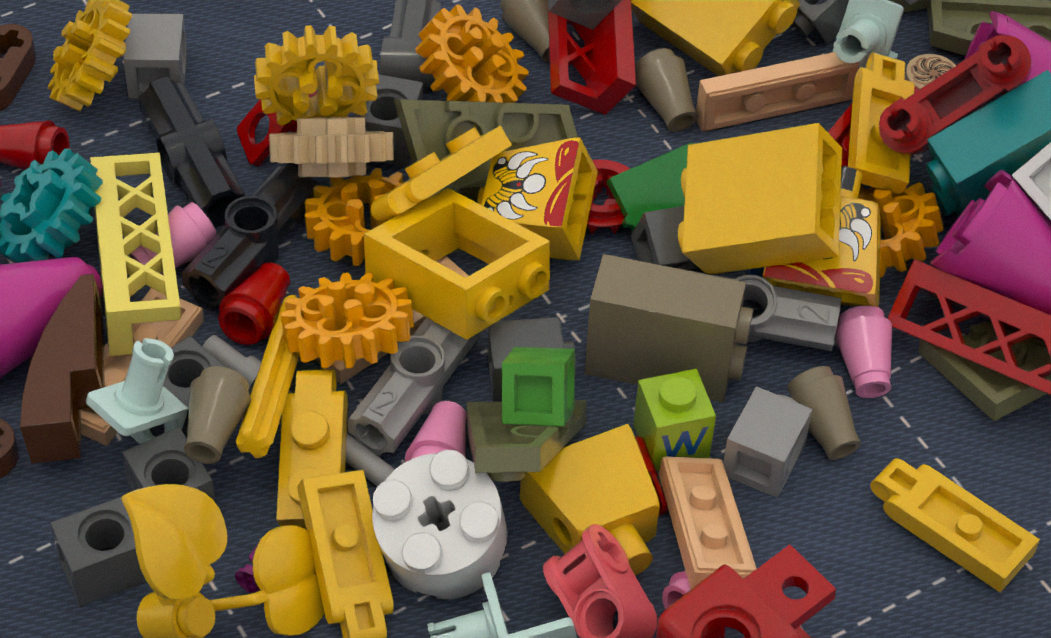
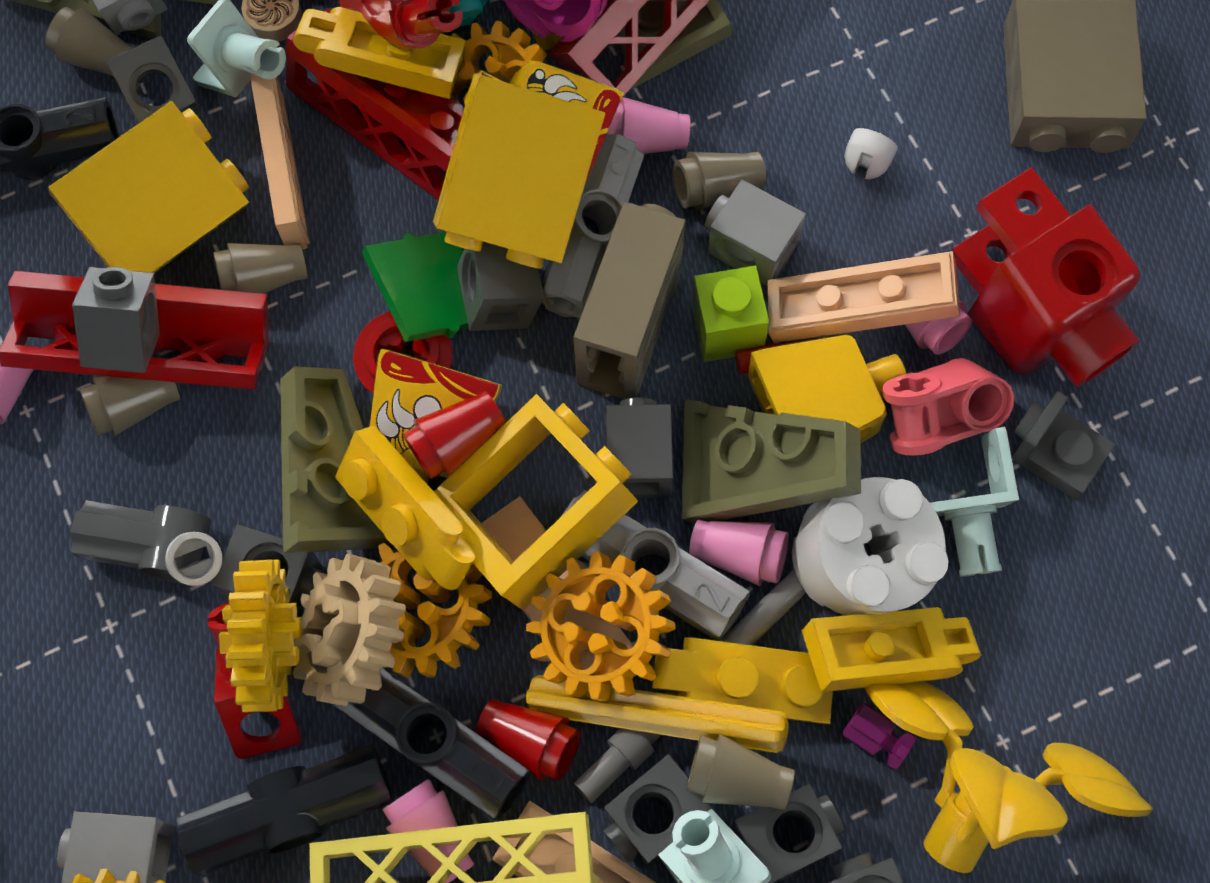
camera: 80 degrees left, 20 degrees up
(399, 46) = (199, 571): none -> white hinge
(471, 58) = (165, 470): light orange gear -> none
(505, 189) = (453, 434): none -> red cone
(538, 386) = (720, 428): bright green brick -> none
(879, 540) = (870, 151): none -> white hinge
(954, 522) = (851, 87): yellow hinge -> none

